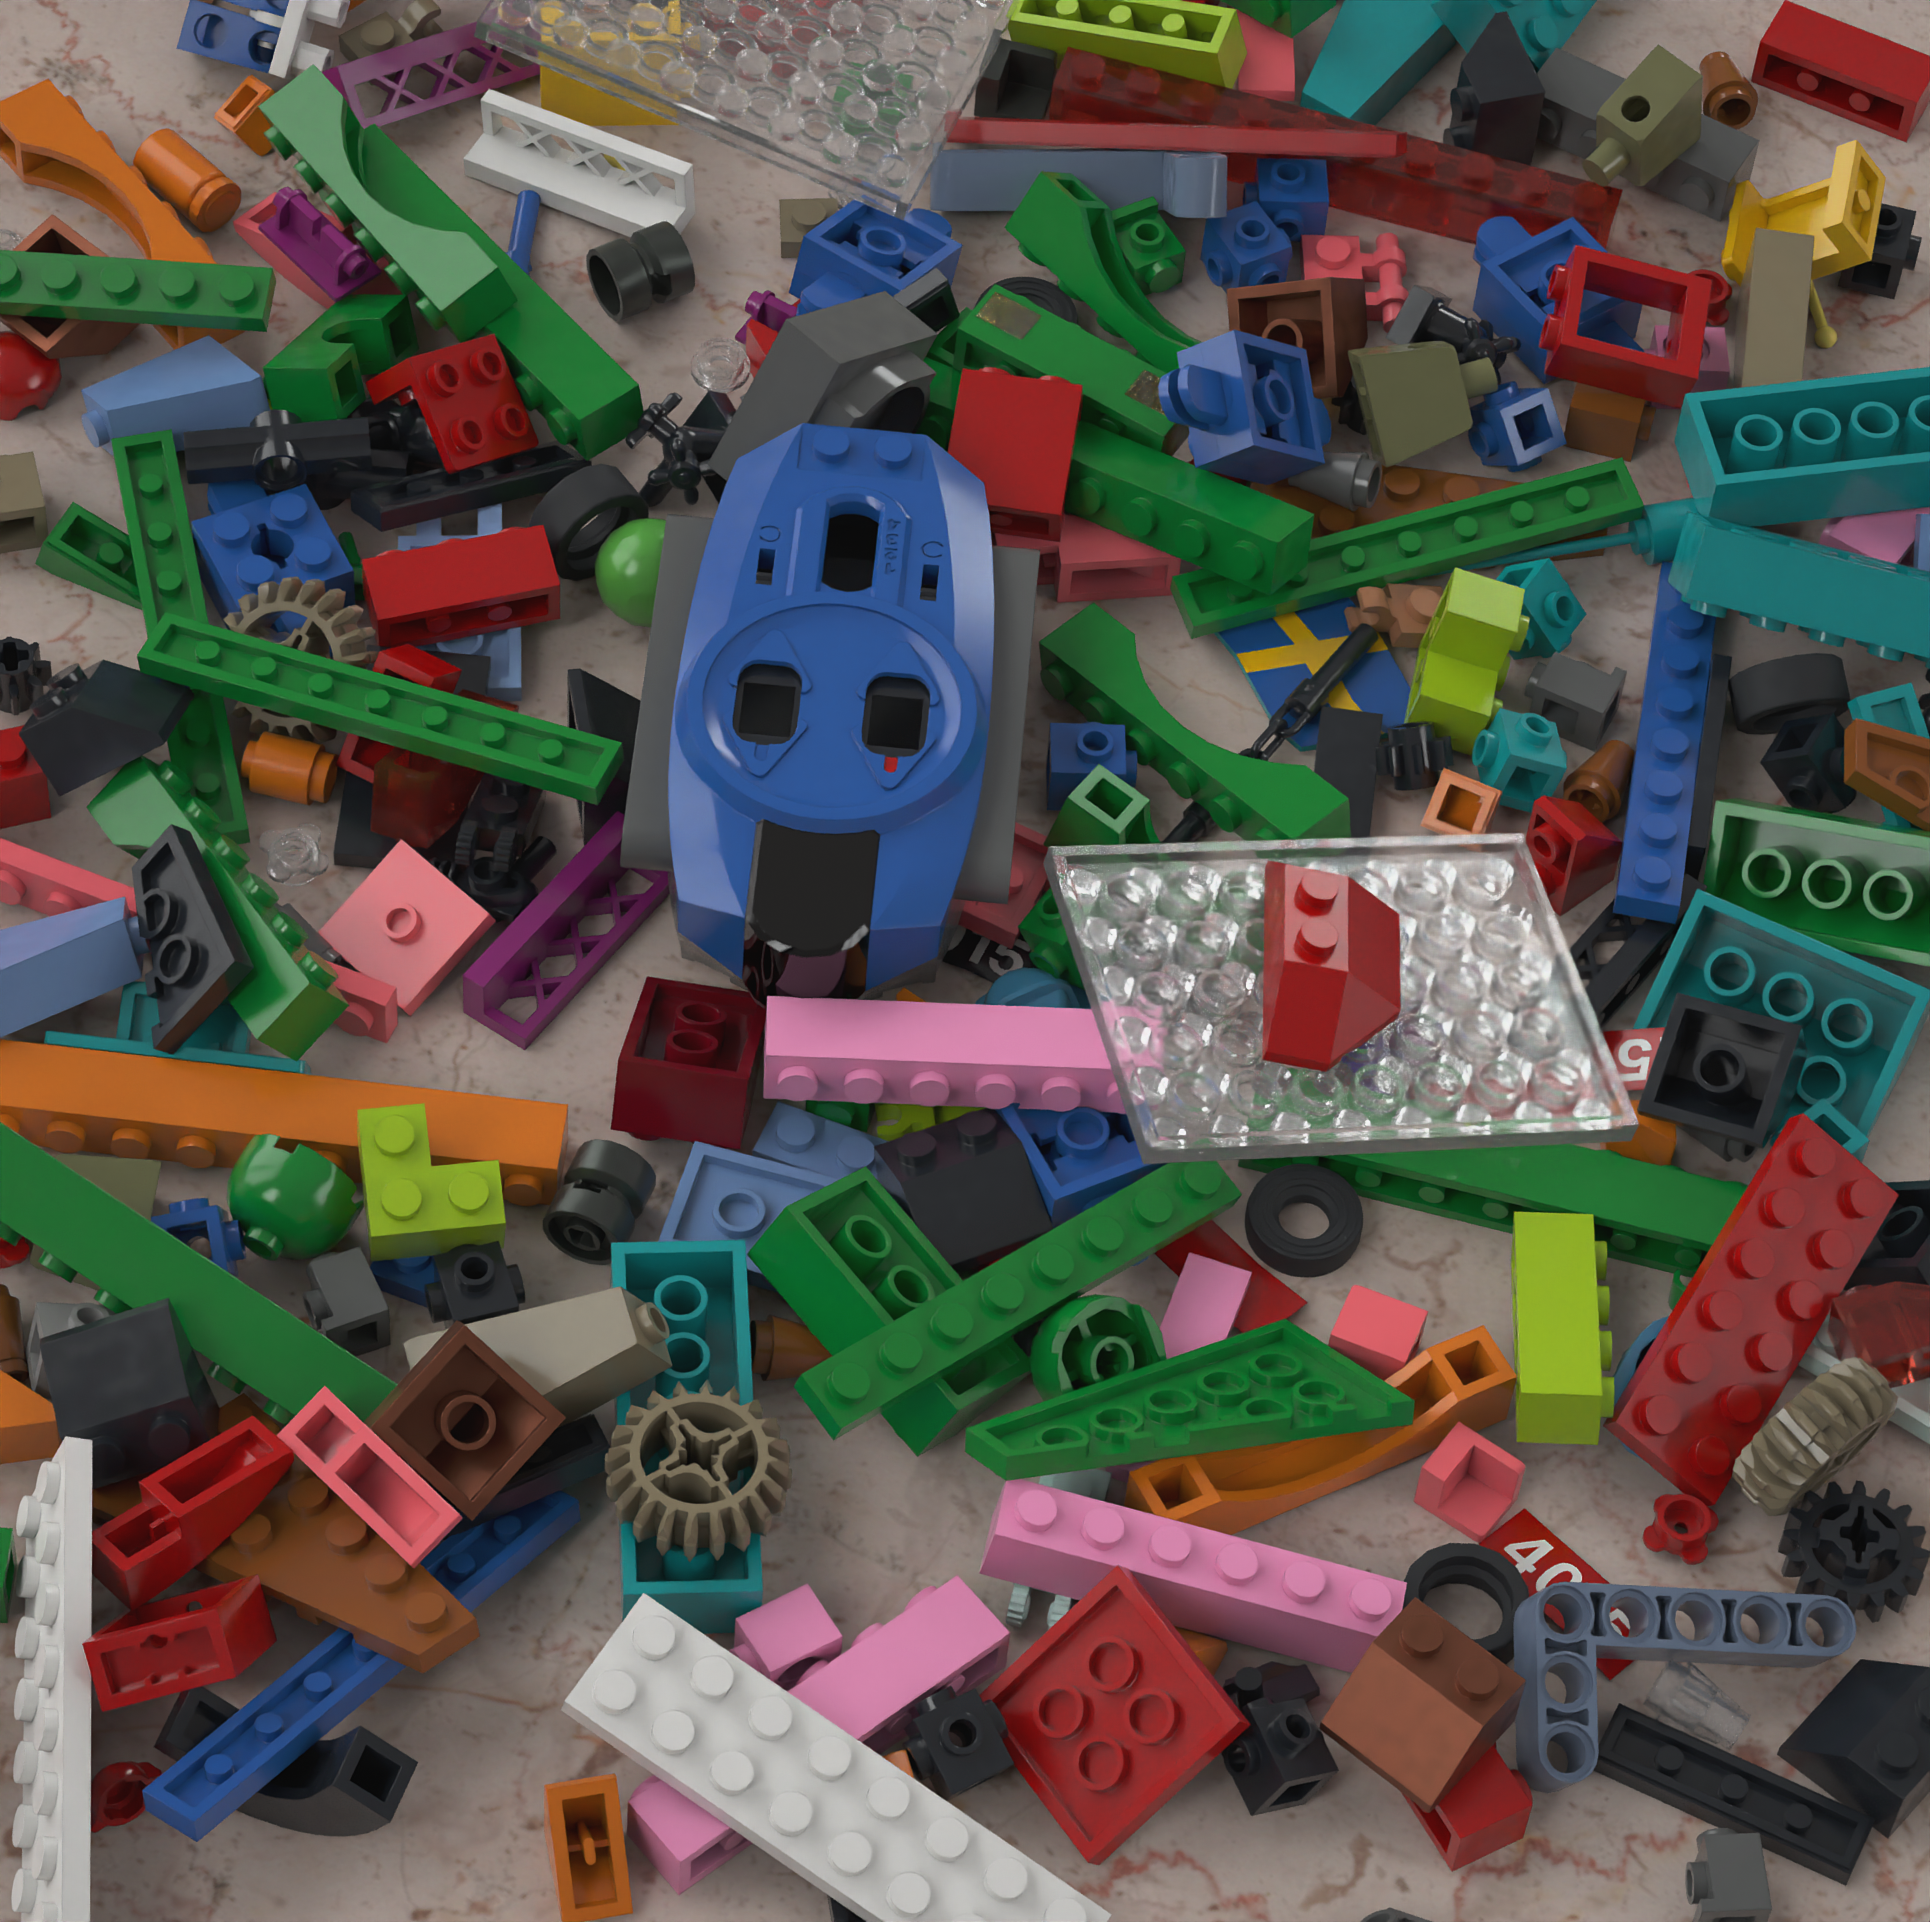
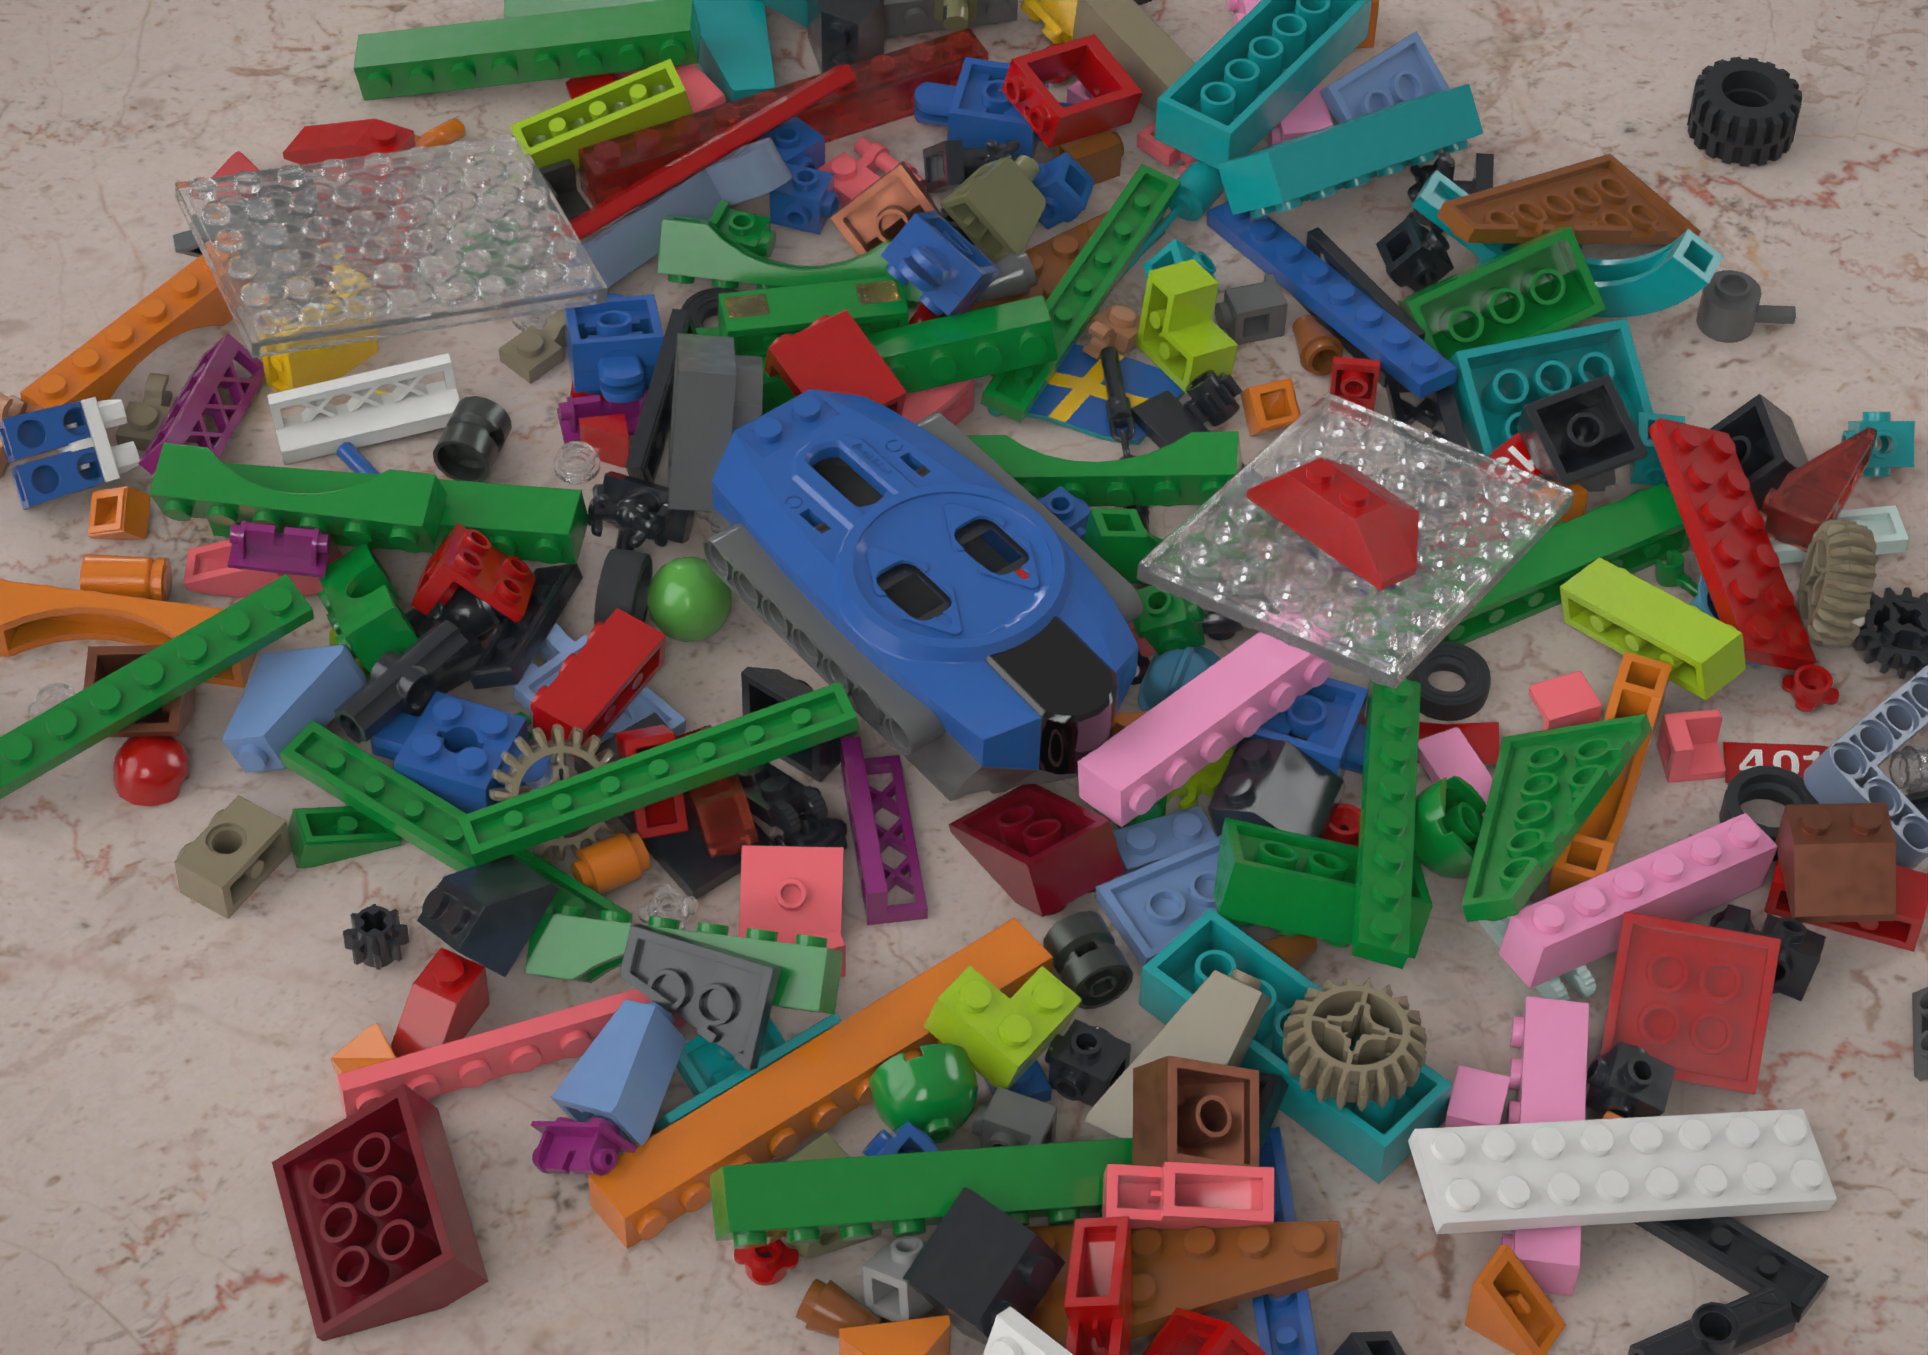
camera: 40 degrees left, 5 degrees down
(1520, 758) = (1271, 356): teal brick -> none
(1788, 690) = (1367, 223): black tyre -> none

